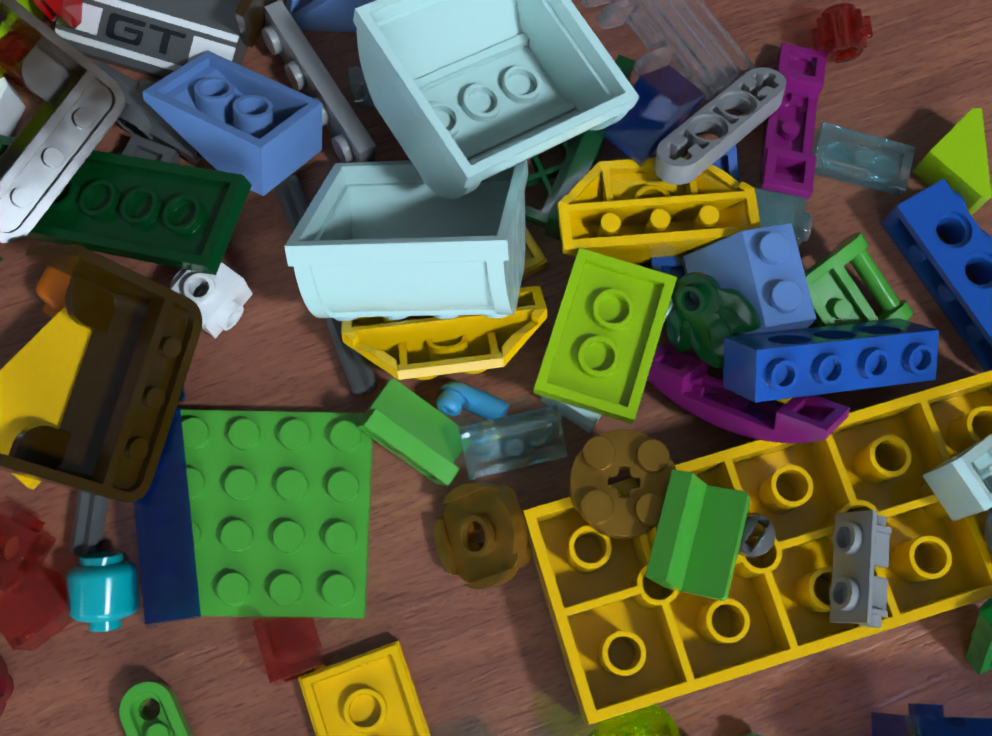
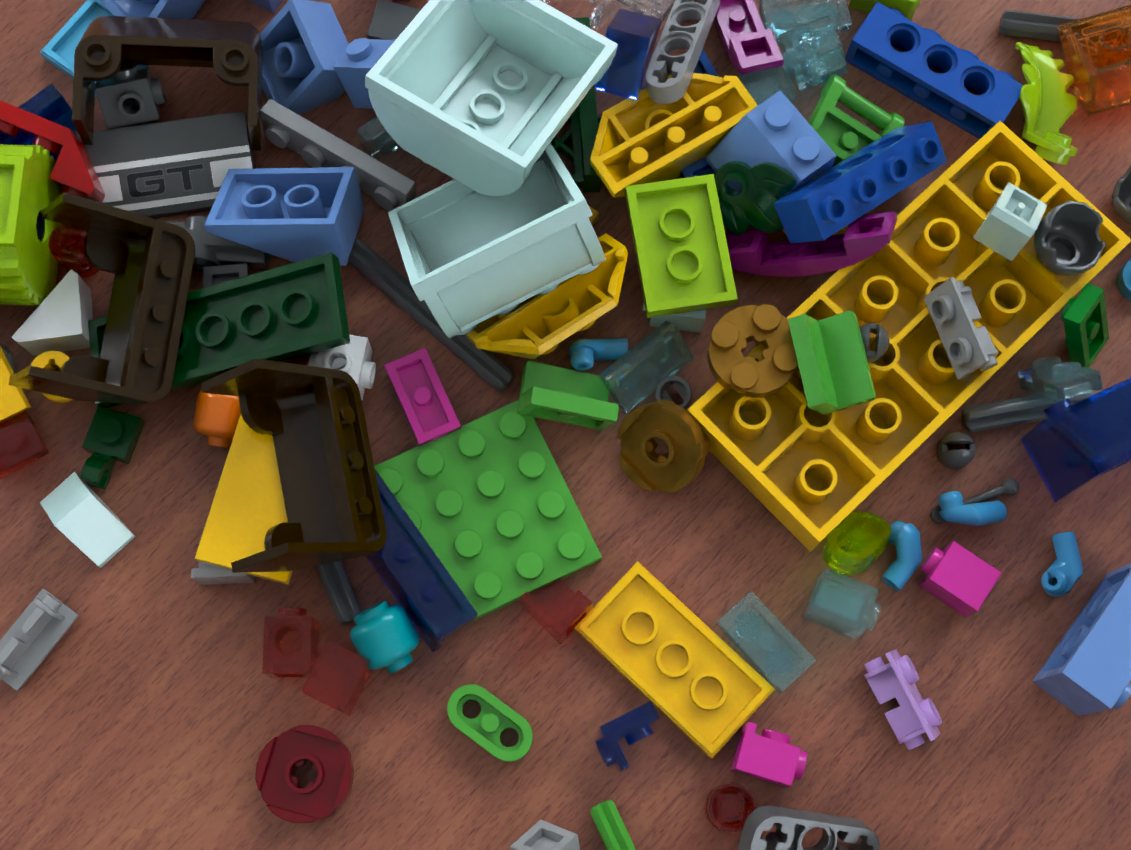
camera: 25 degrees left, 0 degrees up
(273, 363) = (422, 396): none -> dark pink plate
(515, 480) = (680, 385): none -> dark grey hinge
(789, 701) = (955, 458): none -> dark grey hinge
(848, 200) = (812, 53): none -> clear light blue brick
(891, 684) = (1009, 412): none -> dark grey axle
(944, 675) = (1059, 379): none -> clear light blue plate

